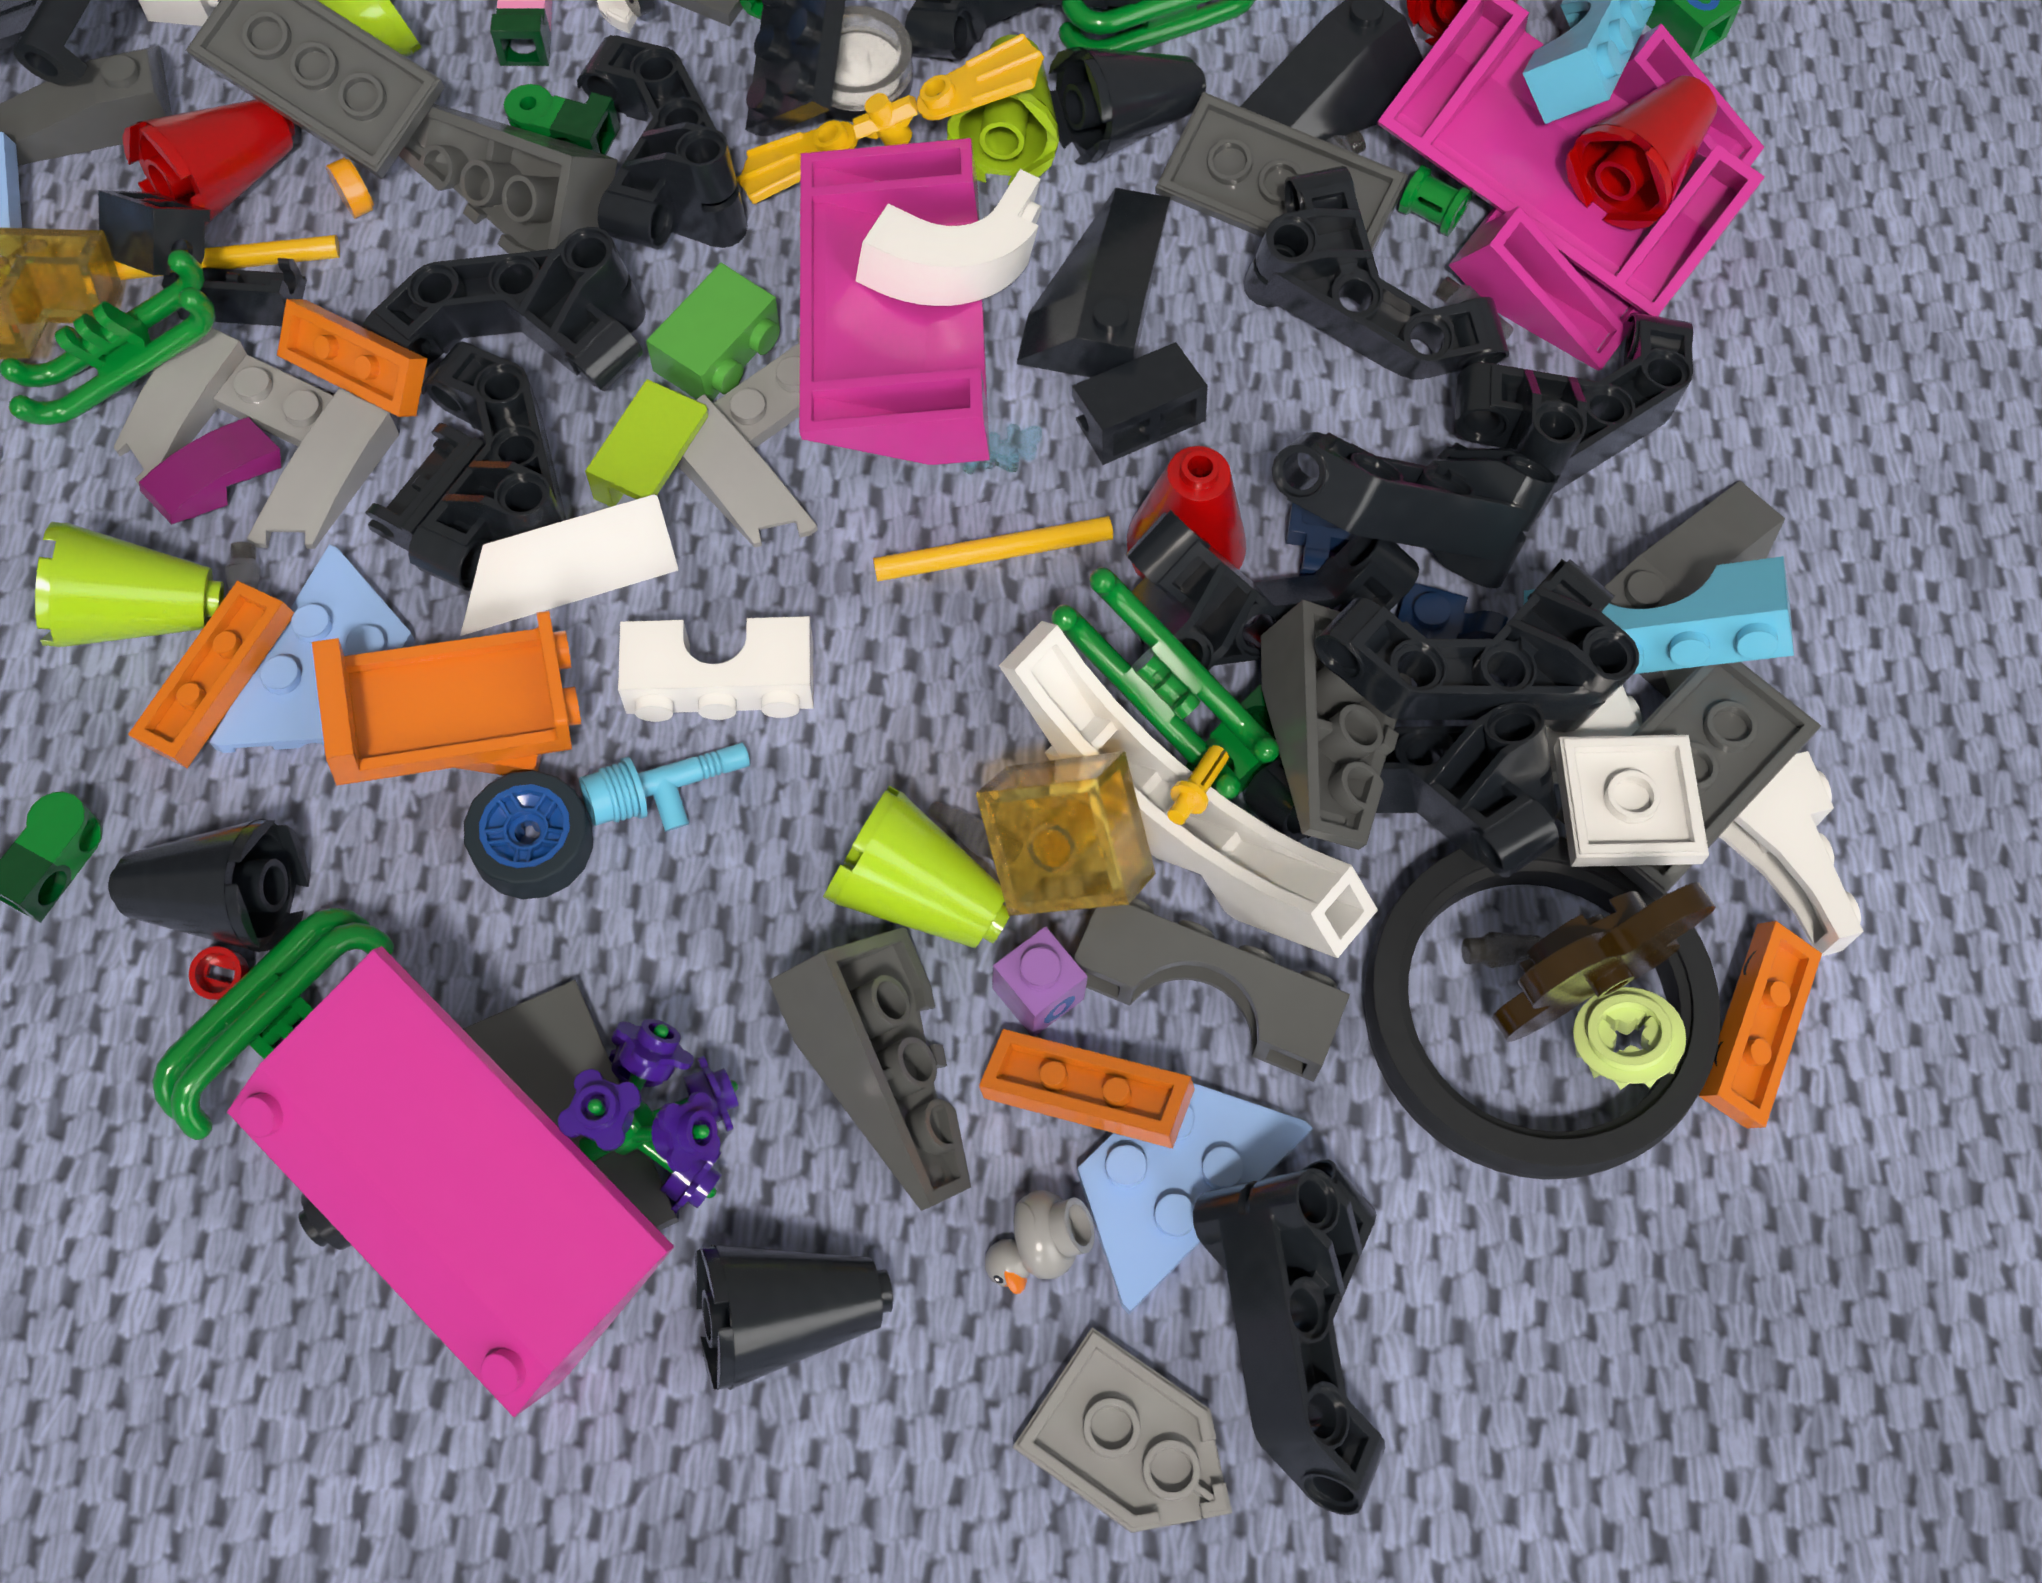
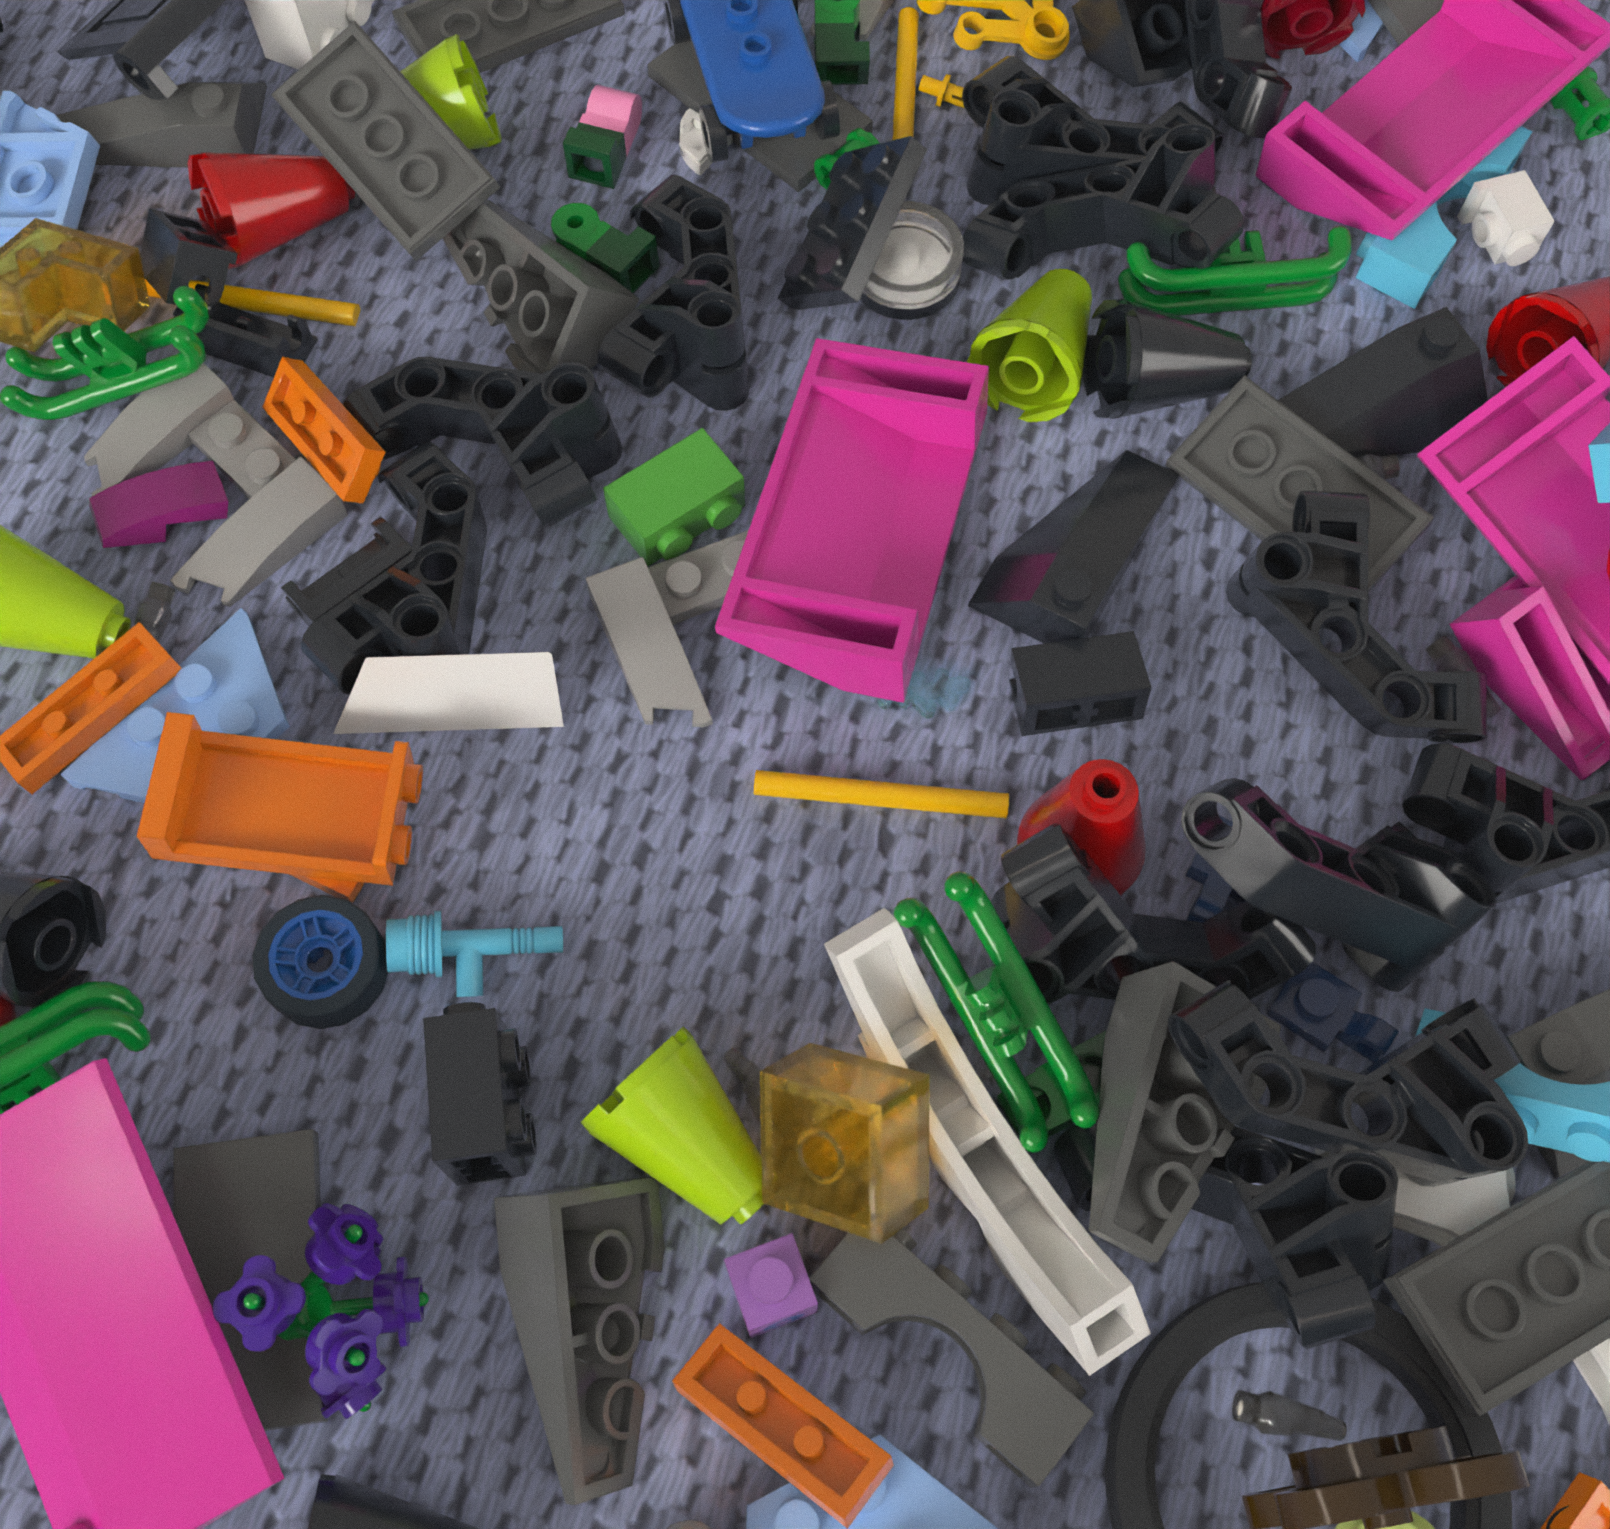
camera: 20 degrees right, 0 degrees up
(350, 187) = (384, 261): light orange tile -> none
(645, 444) = (568, 592): lime panel -> none
(725, 896) = (475, 1096): none -> black brick
(766, 675) = (611, 862): white arch -> none
(952, 263) = (929, 489): white arch -> none
(982, 80) = (1017, 311): yellow piece -> none
(1191, 795) = (987, 1139): yellow piece -> none
(1435, 200) = (1455, 550): green bush -> none
(1630, 800) = (1472, 1297): white tile -> none

